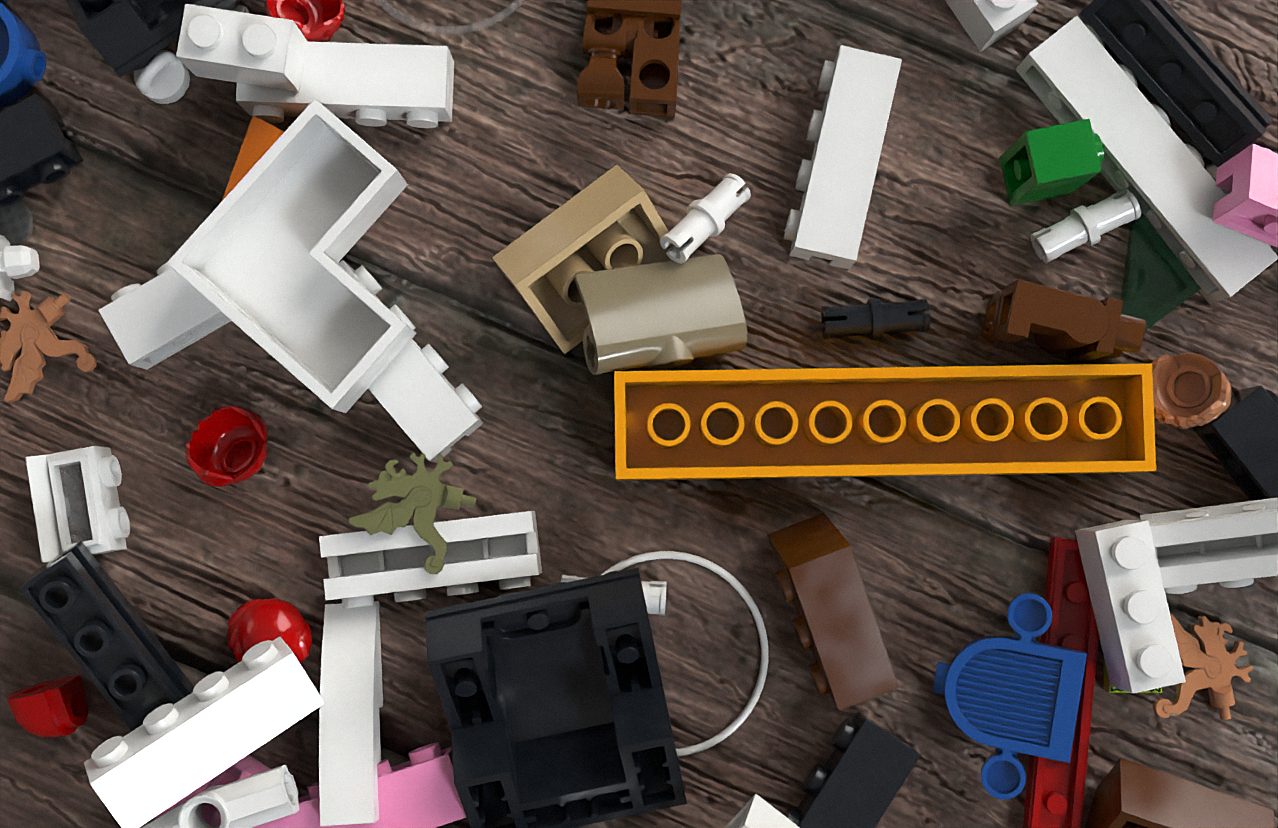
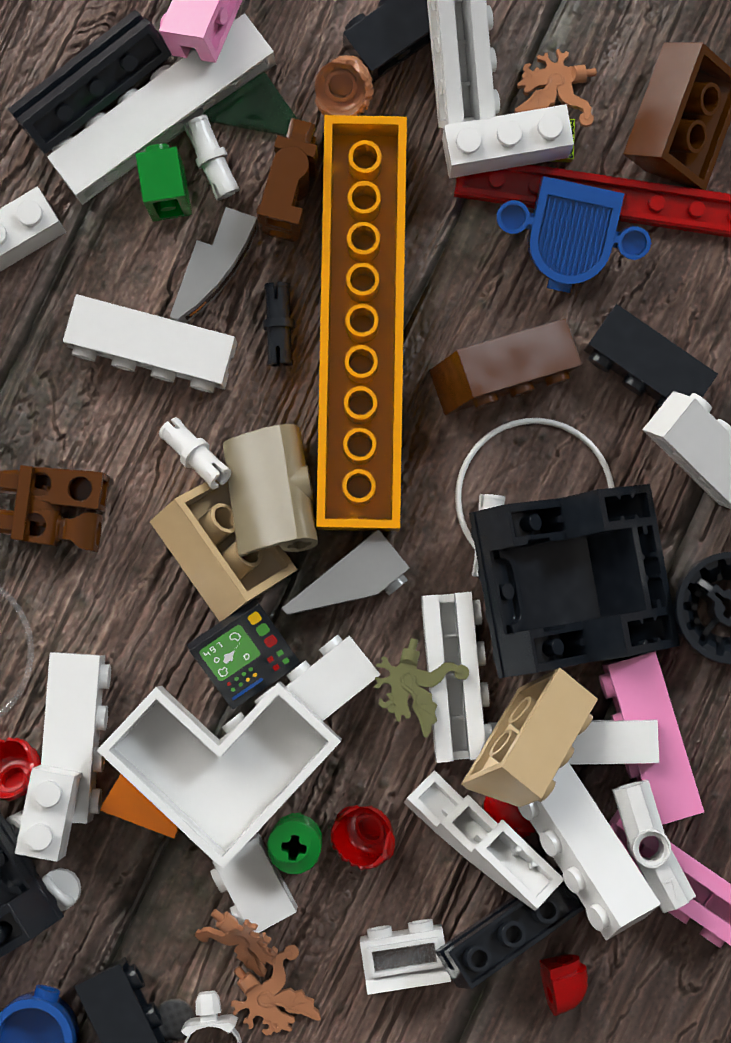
camera: 90 degrees left, 0 degrees up
(87, 309) = (249, 944): none -> nougat piece
(213, 359) = (280, 849): none -> green piece
(217, 602) = (484, 842): none -> white slope
(342, 658) = (532, 740): none -> tan slope
(453, 288) = (243, 654): none -> black tile
(556, 430) = (358, 575): none -> light grey slope
(946, 233) = (214, 264): none -> light grey slope

